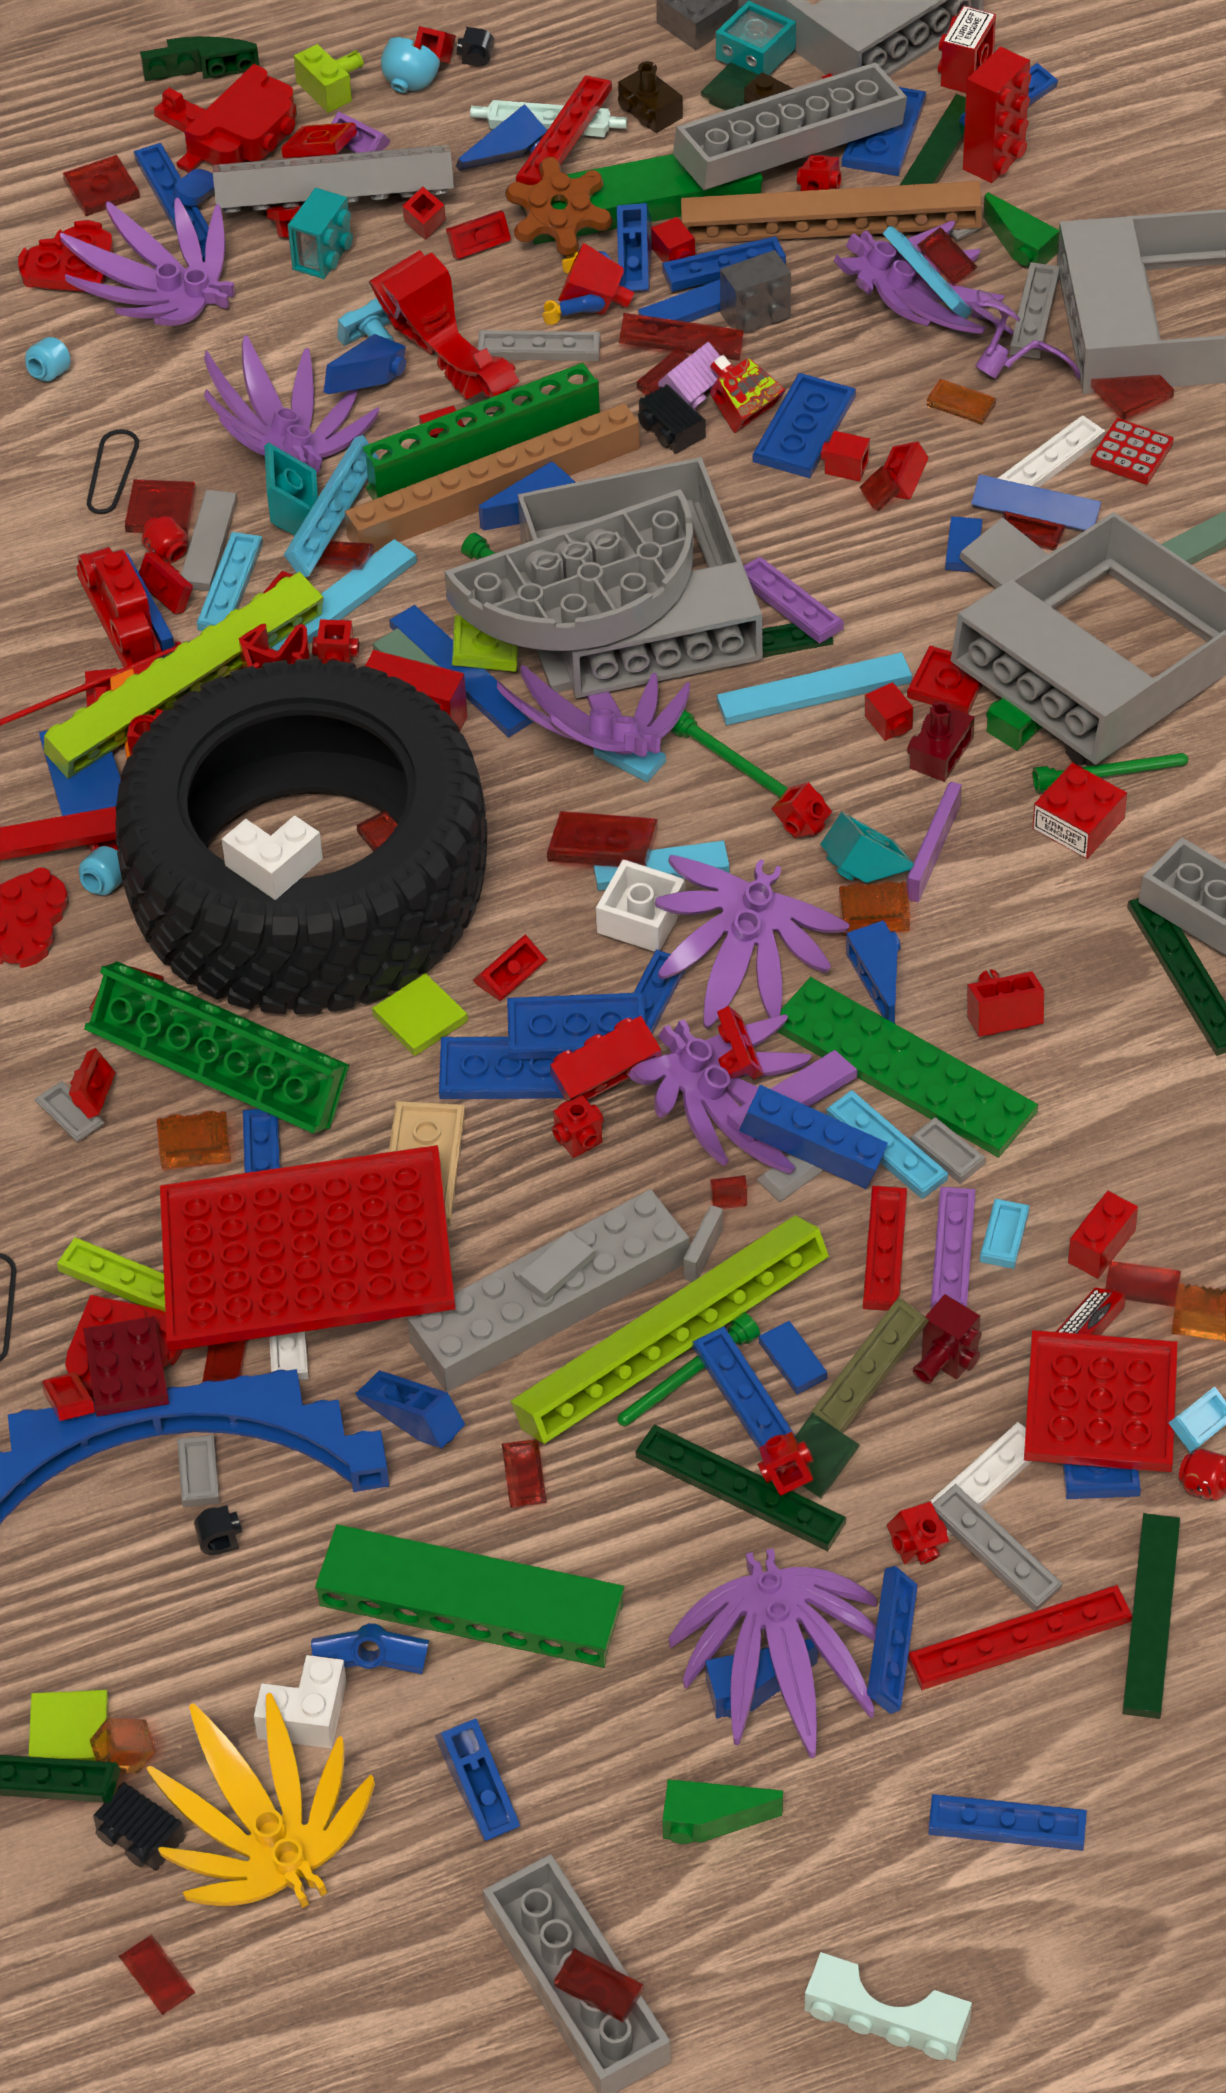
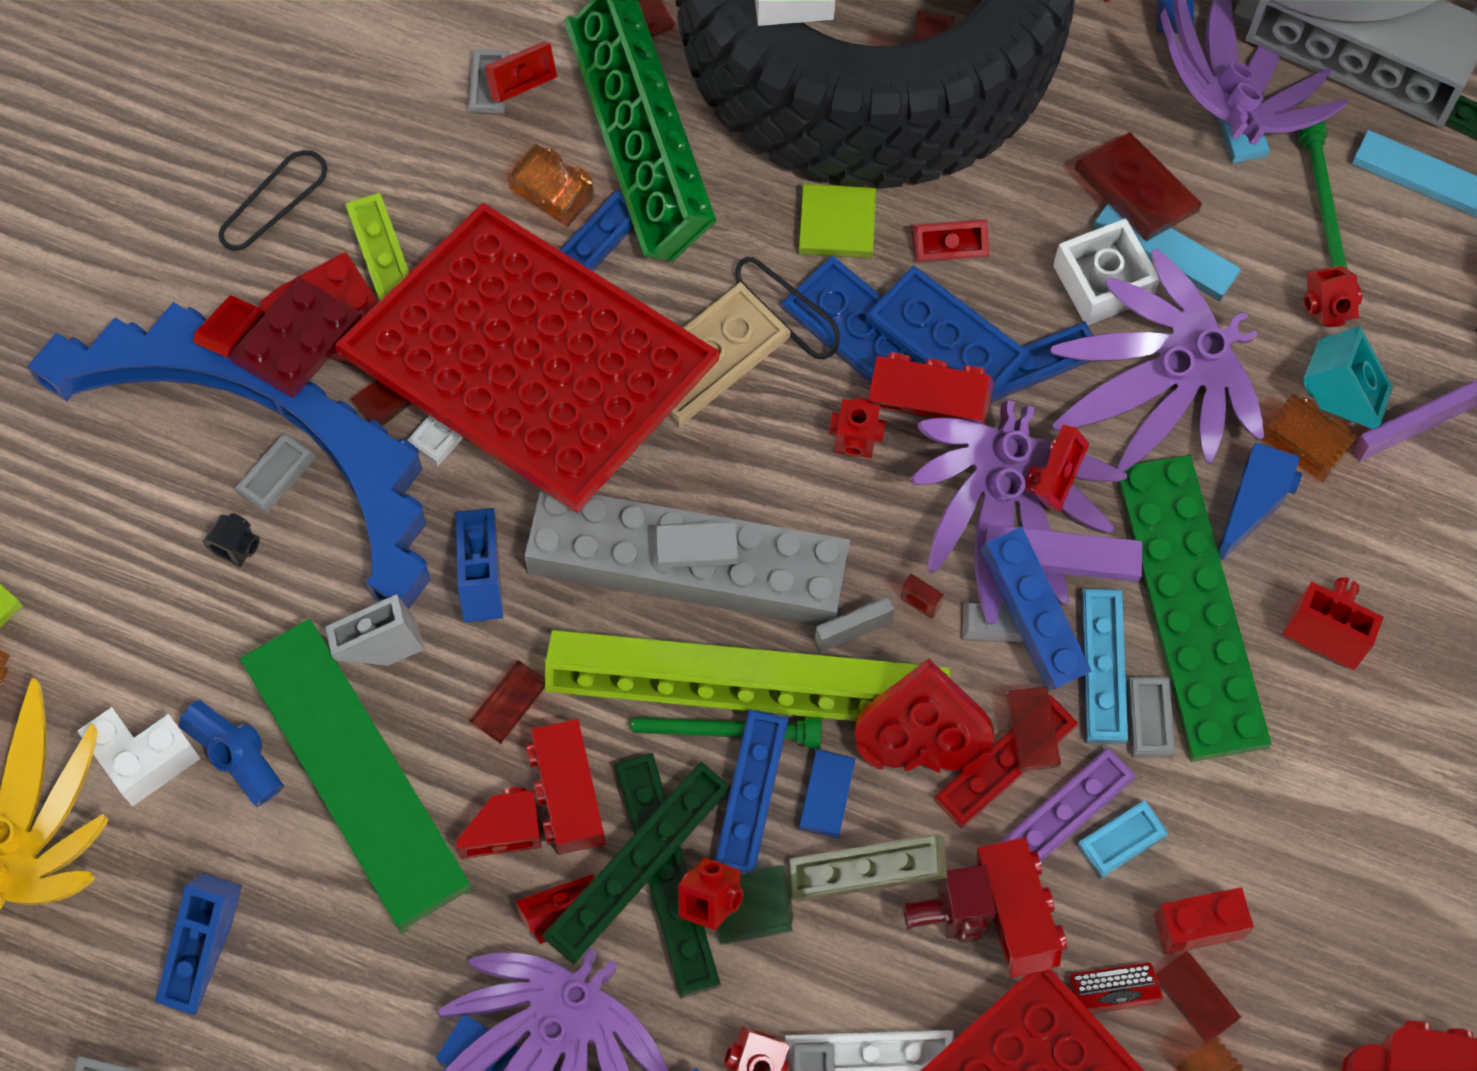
camera: 40 degrees right, 15 degrees up
(392, 1497) = (376, 634): none -> light grey slope
(449, 1074) = (802, 298): none -> black piece
(608, 1539) = (503, 826): none -> red slope
(621, 1487) = (566, 787): none -> red brick
(691, 1559) = (544, 908): none -> red hinge
(719, 1486) = (636, 863): none -> dark green tile
(817, 1255) = (926, 723): none -> red plate
(884, 1210) = (1033, 729): none -> clear red tile
(1006, 1315) = (1022, 908): none -> red brick

